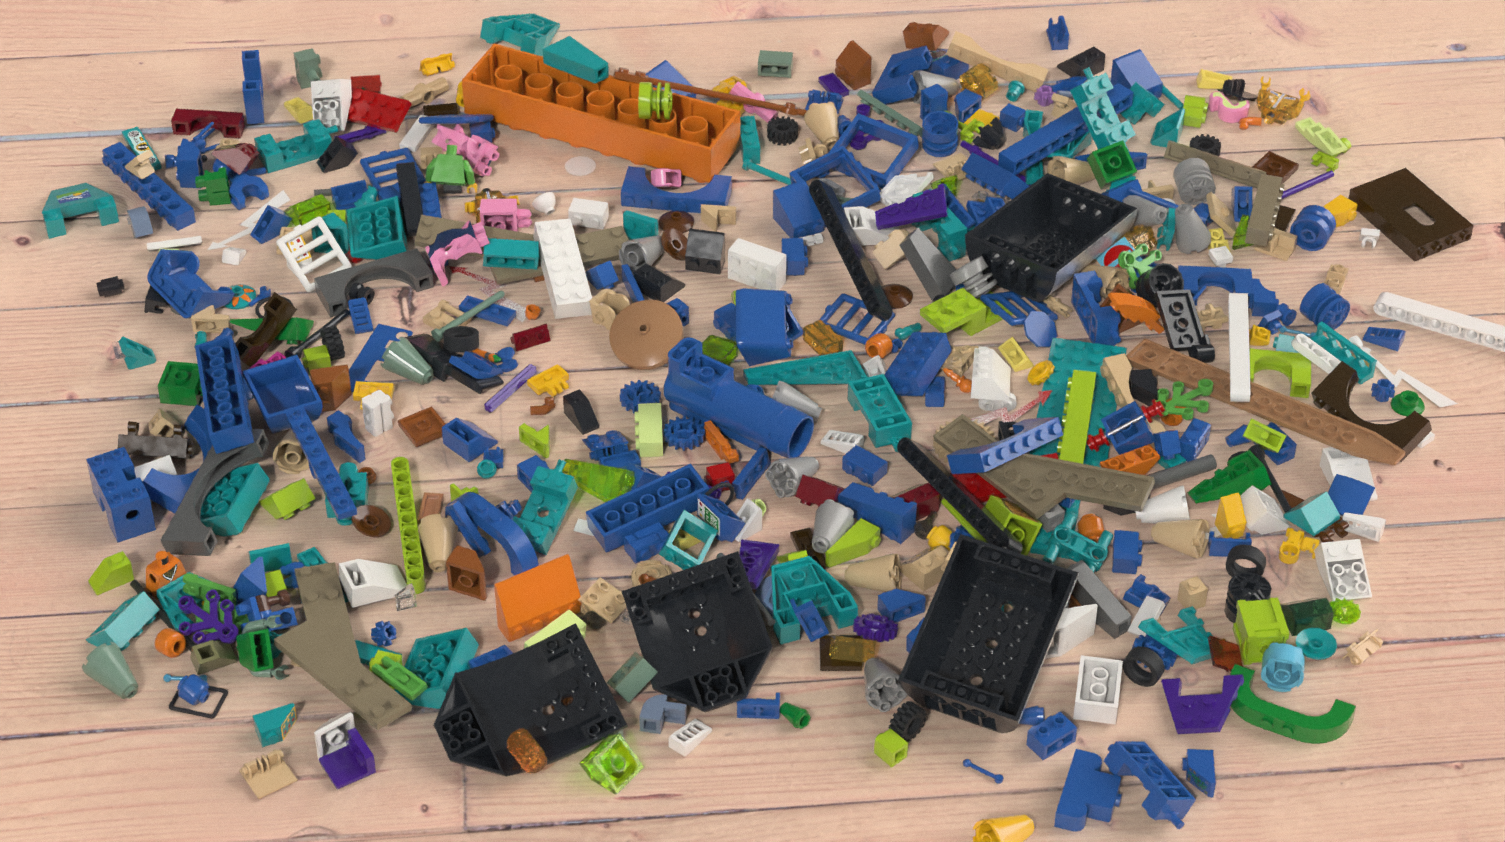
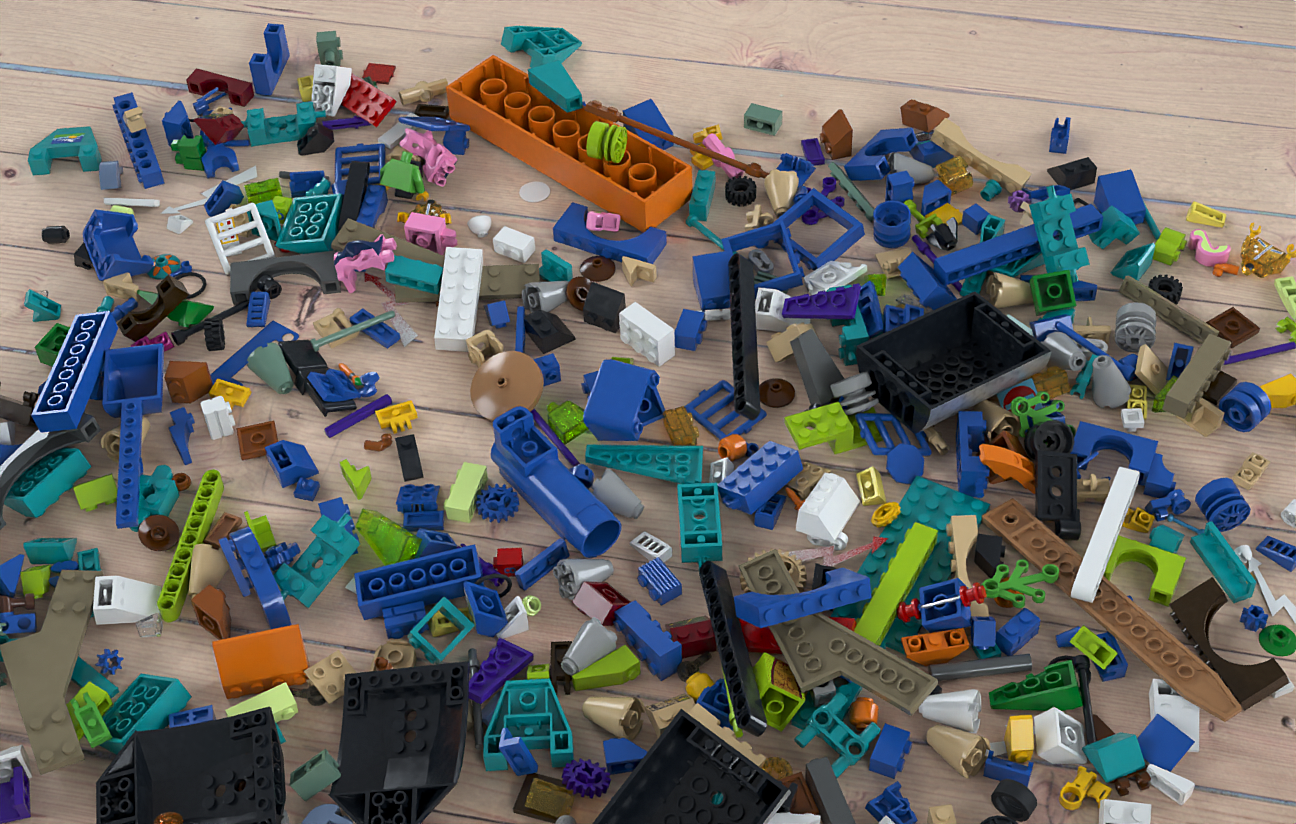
camera: 20 degrees right, 5 degrees up
(138, 145) = (152, 103): tile -> none
(162, 424) = (28, 382): tan panel -> none
(316, 358) = (194, 348): lime brick -> none
(429, 65) = (442, 64): yellow hinge -> none
(461, 339) = (334, 354): black tyre -> none
(486, 469) = (293, 500): teal plate -> none
(530, 337) = (401, 365): dark red hinge -> none
(532, 312) = (418, 335): orange hinge -> none
(639, 393) = (473, 451): blue gear -> none
(719, 443) = (528, 525): orange hinge -> none
(906, 332) = (764, 437): teal arm -> none
(1236, 87) = (1223, 230): black hinge -> none
(1308, 349) = (1200, 565): white beam -> none

